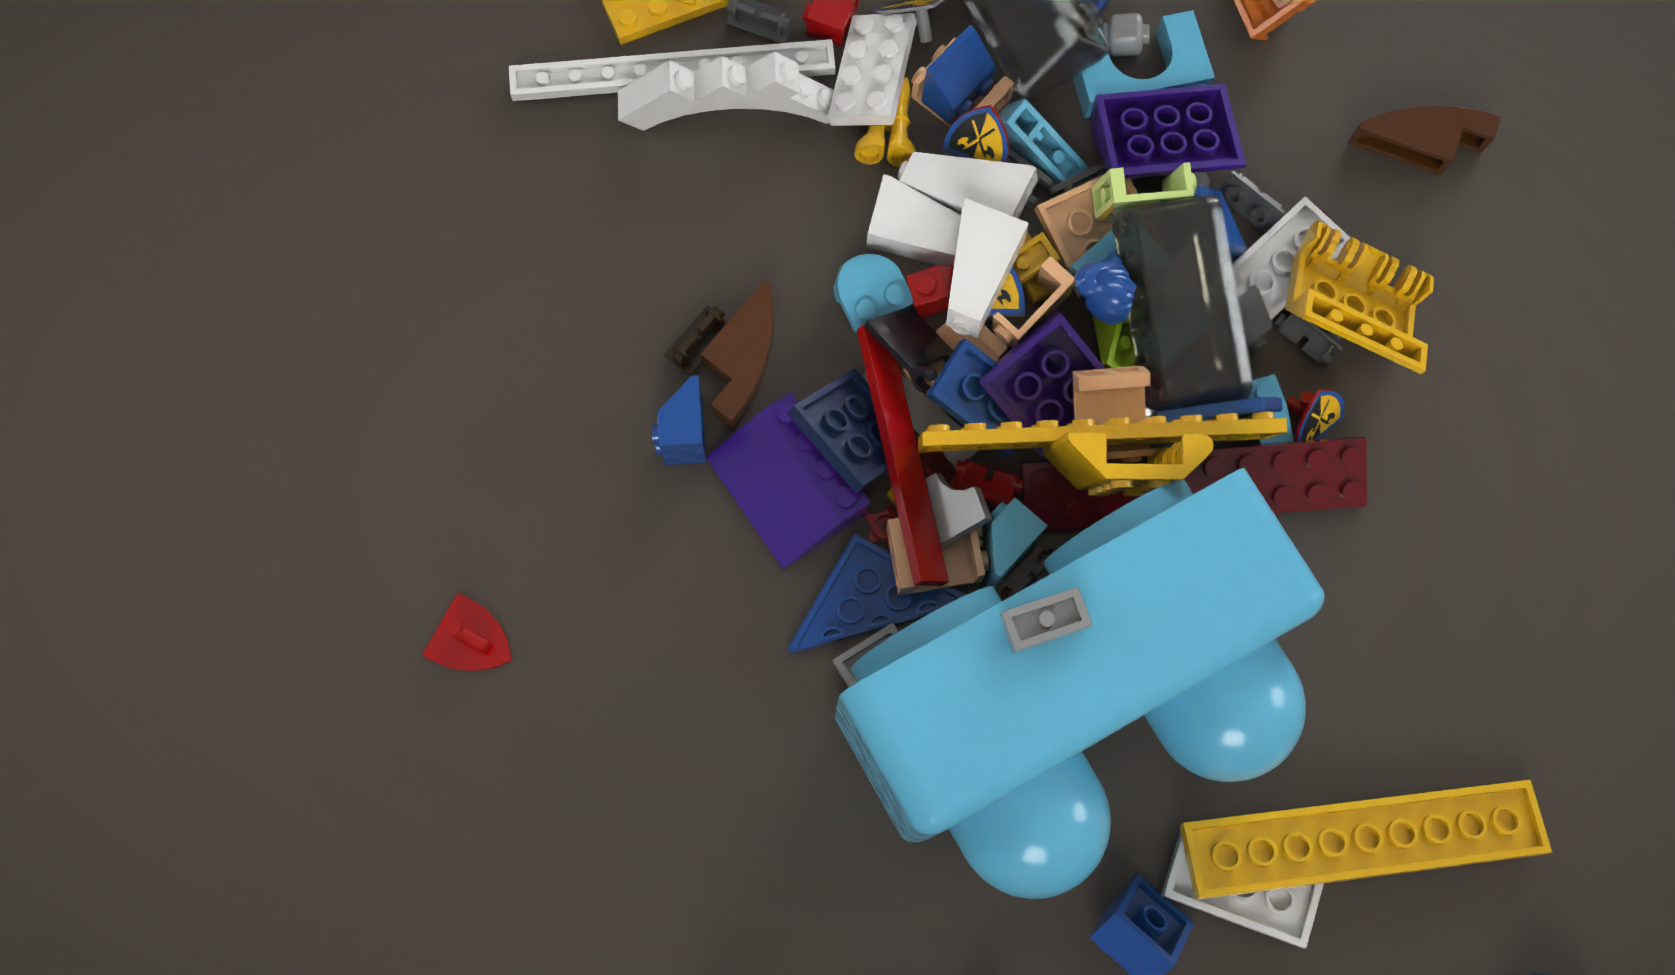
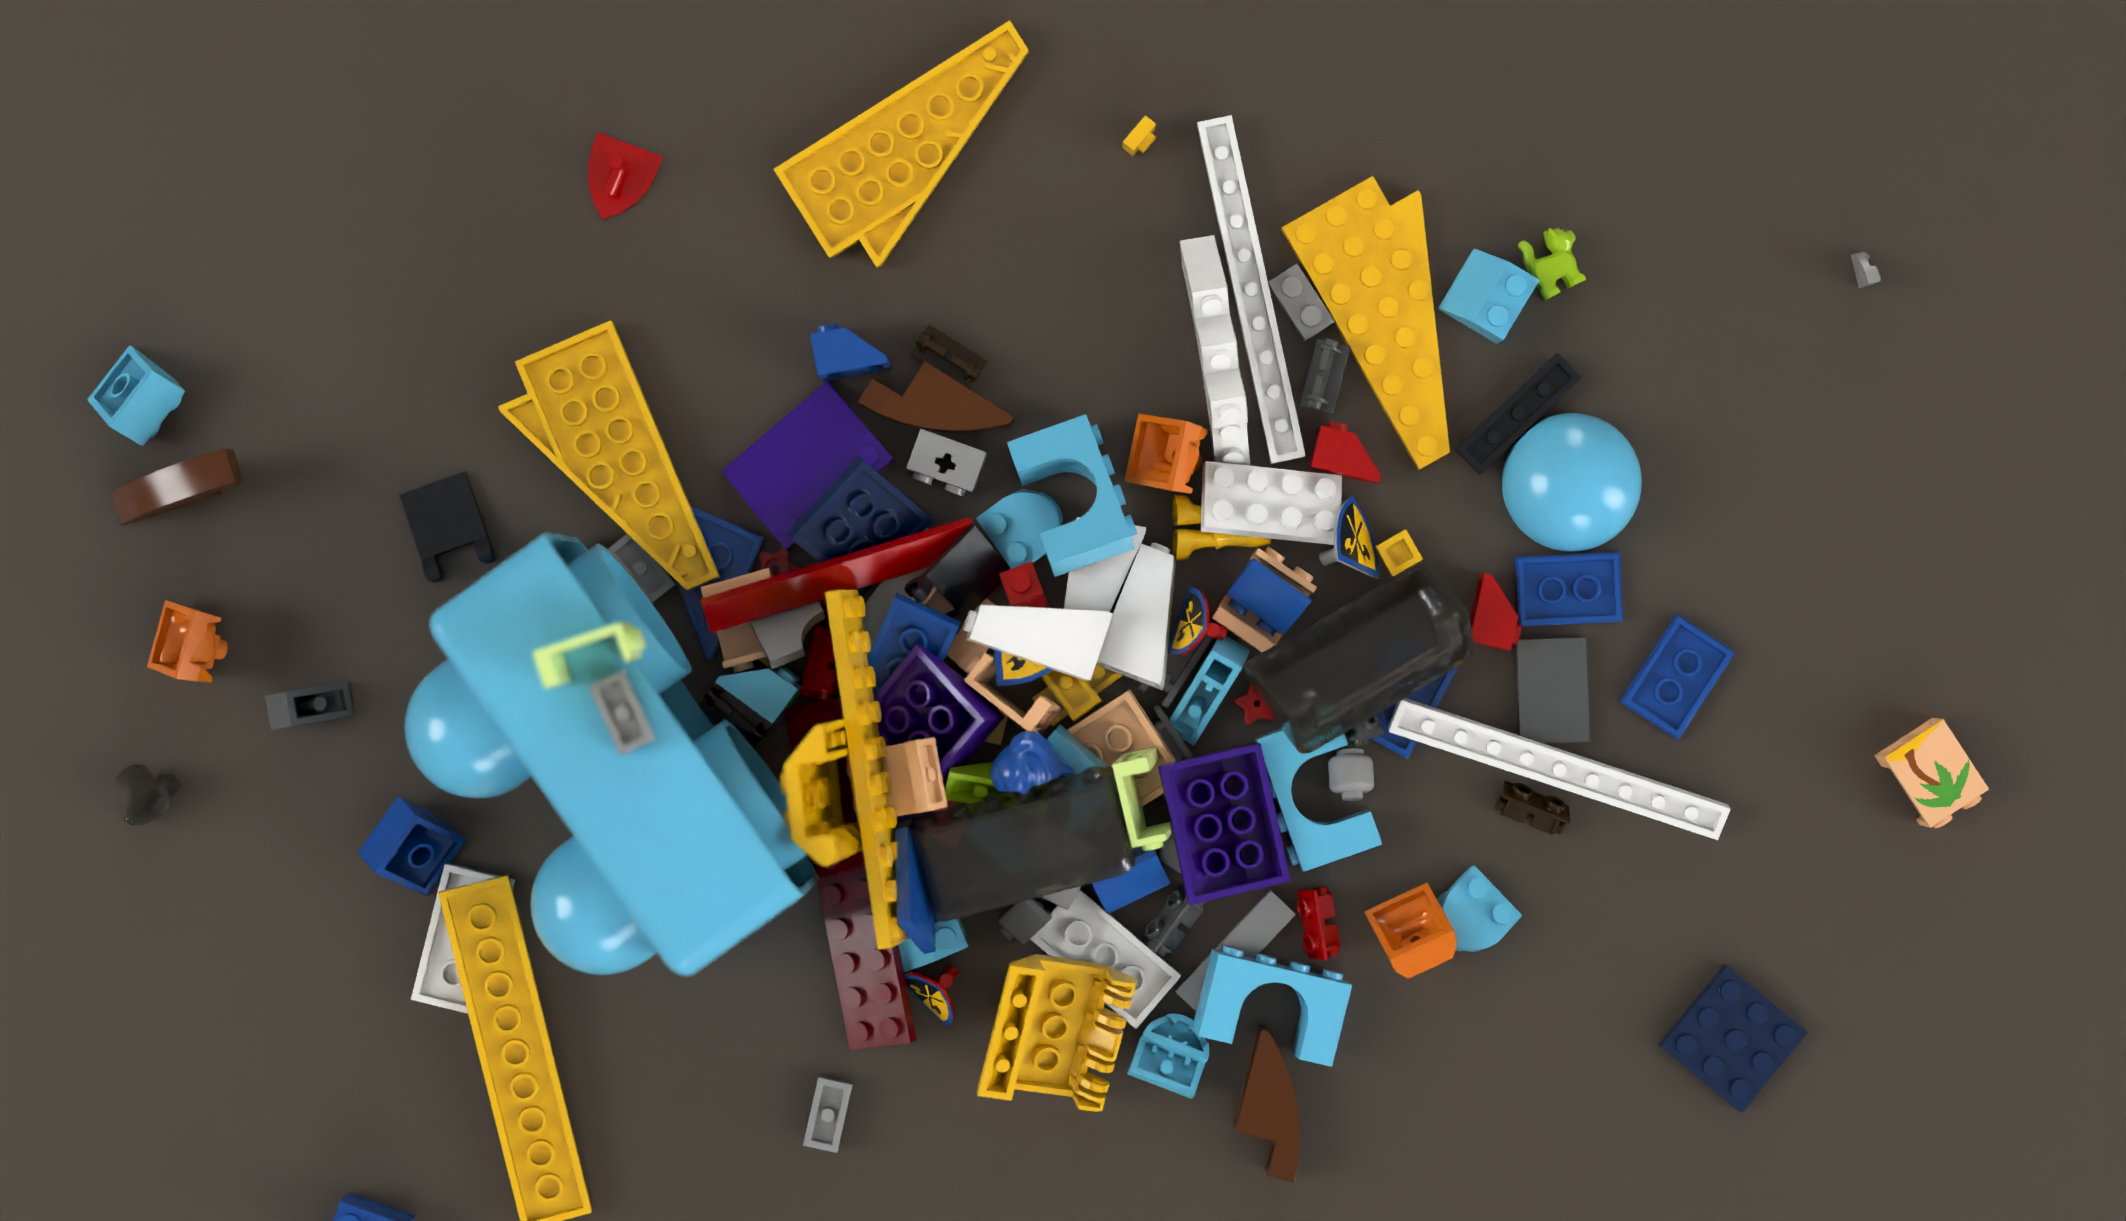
camera: 85 degrees right, 15 degrees up
(501, 377) = (887, 161): none -> yellow wing
(515, 146) = (1140, 137): none -> yellow plate
(691, 31) = (1300, 302): none -> light grey plate
(730, 680) = (600, 432): none -> yellow wing
(799, 858) = (444, 519): none -> black flag
(800, 332) = (931, 447): none -> light grey brick
(803, 227) = (1075, 449): none -> medium azure arch
(815, 151) = (1164, 453): none -> orange brick
(979, 683) = (552, 663): none -> yellowish green panel
(1062, 112) = (1251, 712): none -> red plate
(1261, 81) = (1318, 939): none -> red hinge
(1283, 153) = (1250, 934): none -> light grey tile
(1310, 145) = (1234, 976): none -> medium azure arch
(1377, 214) = (1170, 1055): none -> medium azure slope
(1429, 533) = (828, 1114): none -> light grey plate

